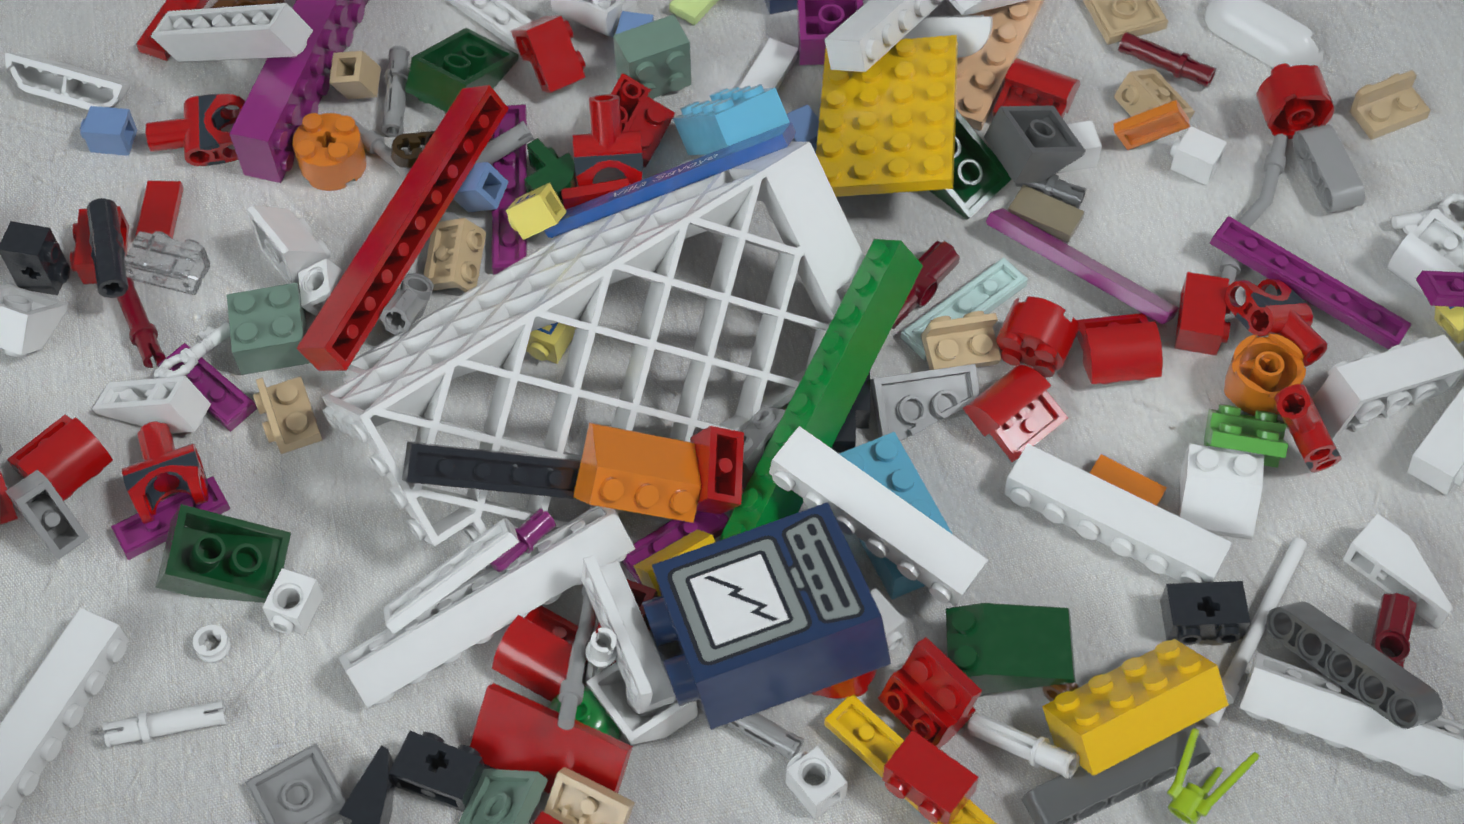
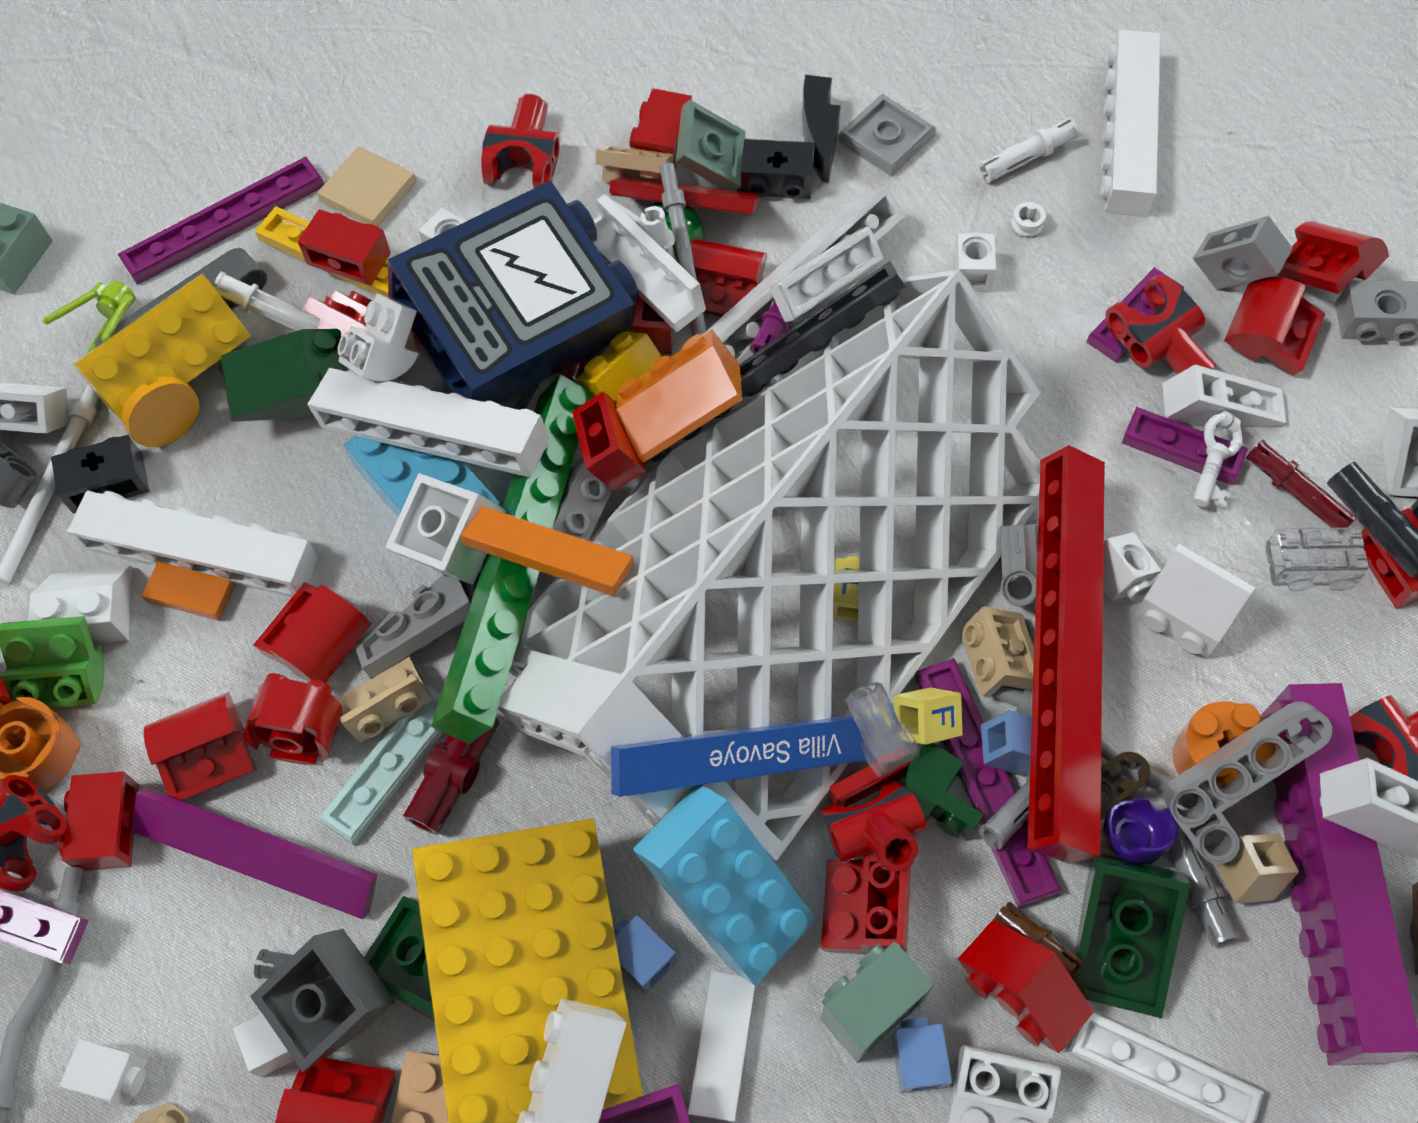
camera: 165 degrees right, 5 degrees up
(160, 207) = (1372, 629): red tile -> none
(221, 556) = (1061, 280): dark green slope -> none
(267, 328) = (1158, 505): sand green brick -> none
(289, 414) = (1086, 428): tan bracket -> none
(334, 99) = (1250, 775): none -> light grey beam
(420, 108) = (1140, 831): none -> dark purple hair
(526, 77) = (1014, 919): none -> reddish brown pin
(578, 193) = (886, 740): none -> clear piece
(798, 349) = (548, 550): none -> orange tile
(881, 424) = (433, 525): none -> white slope
(910, 602) = (380, 348): none -> white brick
(1046, 213) = (294, 923): dark tan tile -> none
(1139, 641) = (160, 412): none -> light orange tile
(1151, 125) = (165, 1088): orange tile -> none

